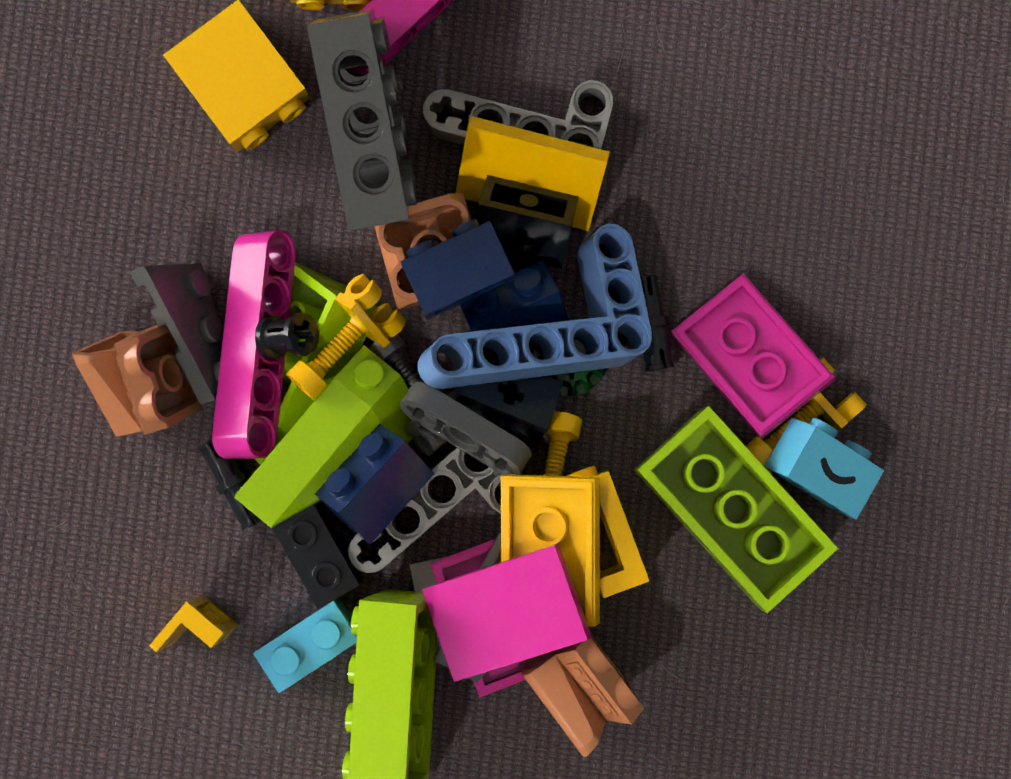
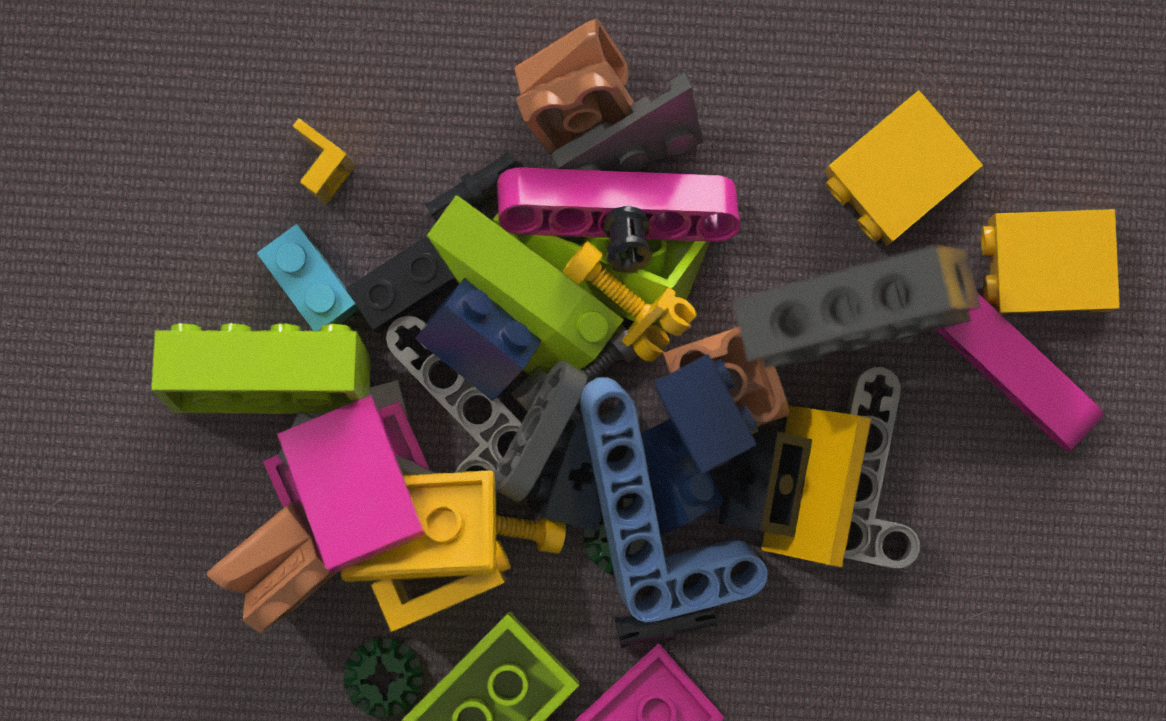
camera: 85 degrees right, 0 degrees up
(673, 578) = (397, 659): none -> dark green gear

